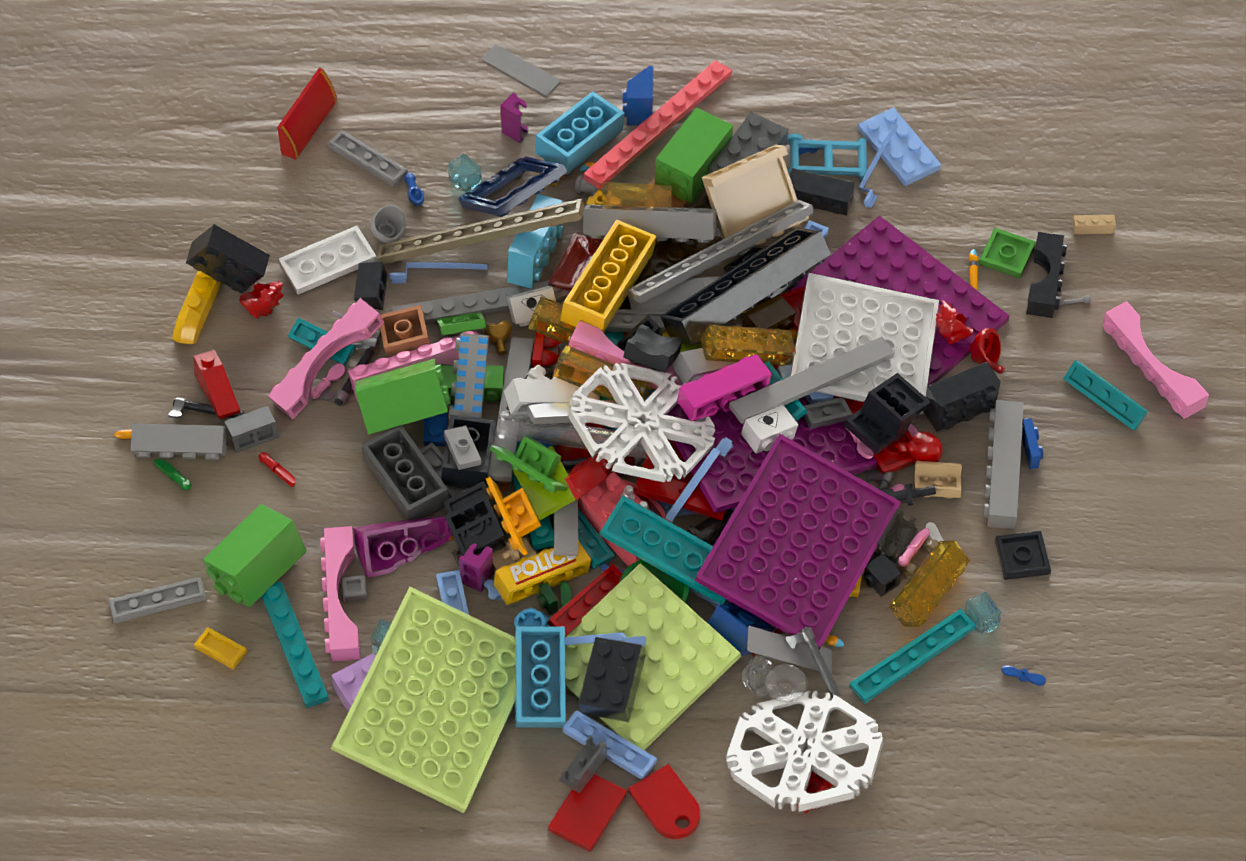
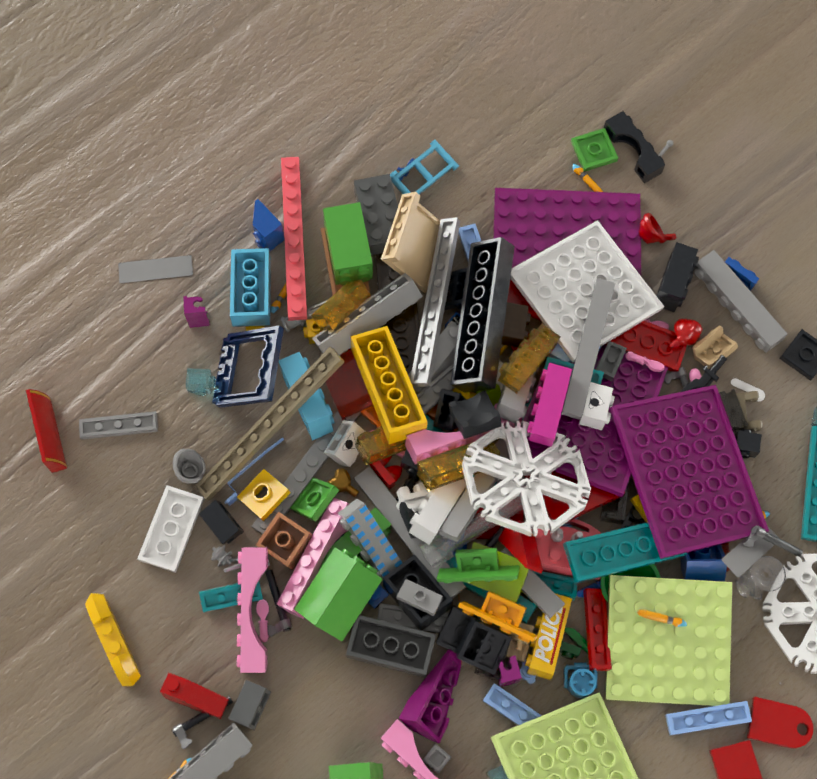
camera: 45 degrees left, 15 degrees up
(227, 259) = (110, 596): black brick -> none
(262, 298) = (156, 599): red hair -> none
(277, 469) = (298, 718): red piece -> none
(342, 305) = (221, 555): none -> light grey wheel
(415, 194) = (180, 425): blue piece -> none
(432, 291) = (263, 506): none -> yellow piece
(539, 677) = (630, 716): medium azure brick -> none
(584, 765) = (712, 750): dark grey hinge -> none
(612, 679) = (676, 676): black brick -> none
(613, 636) = (661, 636): light blue piece -> none
(656, 640) = (677, 622): none -> light orange piece
(722, 449) = (583, 446): light blue piece -> none
(823, 191) = (447, 199): black brick -> none
(870, 198) = (476, 176): light blue piece -> none
(886, 413) = (652, 330): black bracket -> none
(904, 152) = (456, 127): light blue plate -> none
(912, 549) = (747, 410): bright pink piece -> none
(929, 584) = (782, 425): clear yellow brick -> none
(952, 324) = (622, 231): red hair -> none
(1093, 224) = (625, 87): tan piece -> none
(1105, 395) = (747, 202): teal plate -> none
(1181, 391) = (715, 145): bright pink arch -> none

